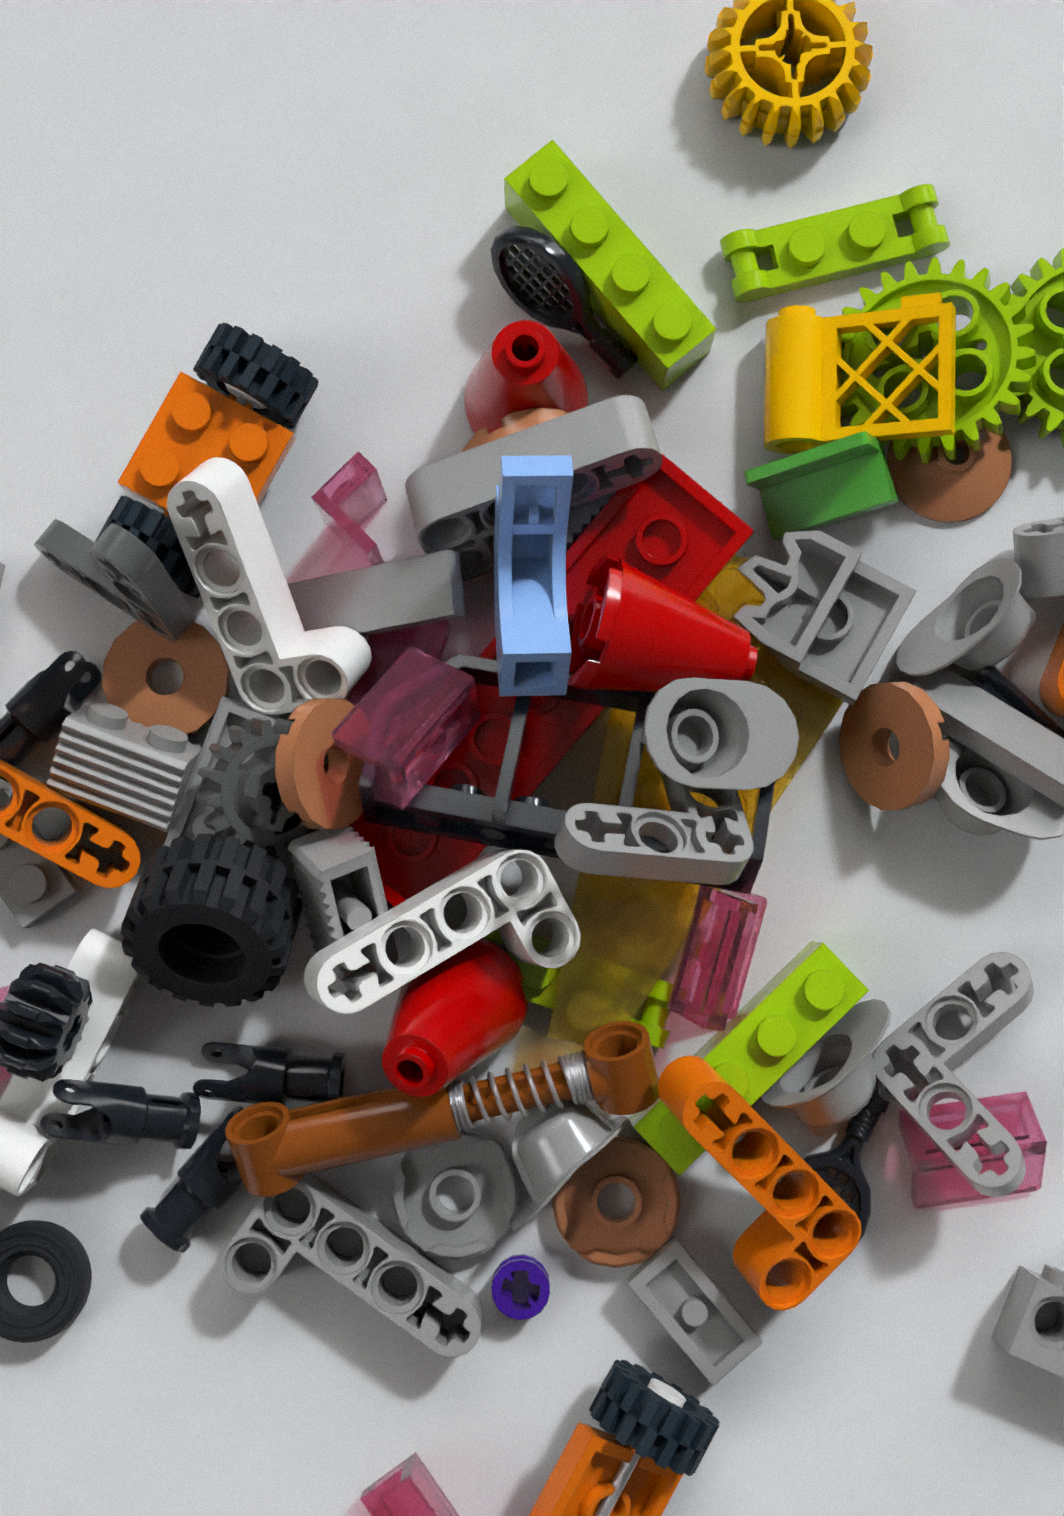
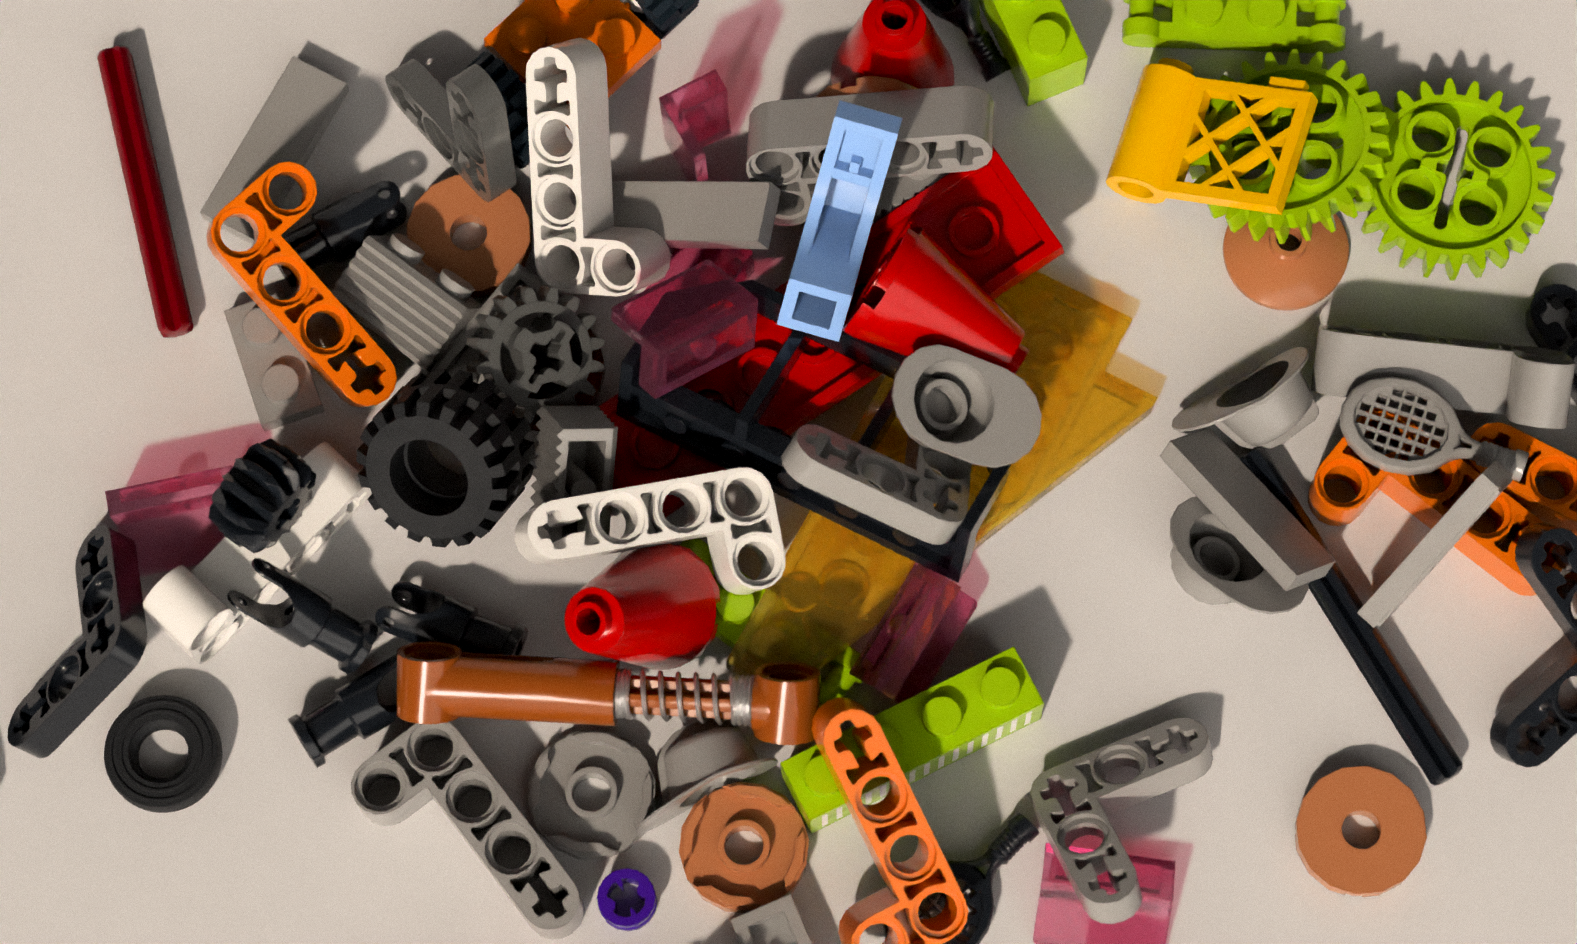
camera: 20 degrees right, 10 degrees down
(304, 788) = (586, 377): nougat tile -> none
(823, 612) = (1111, 346): light grey plate -> none
(824, 484) = (1149, 230): bright green panel -> none
(836, 1073) = (989, 789): light grey piece -> none
(866, 751) = (1138, 459): nougat tile -> none

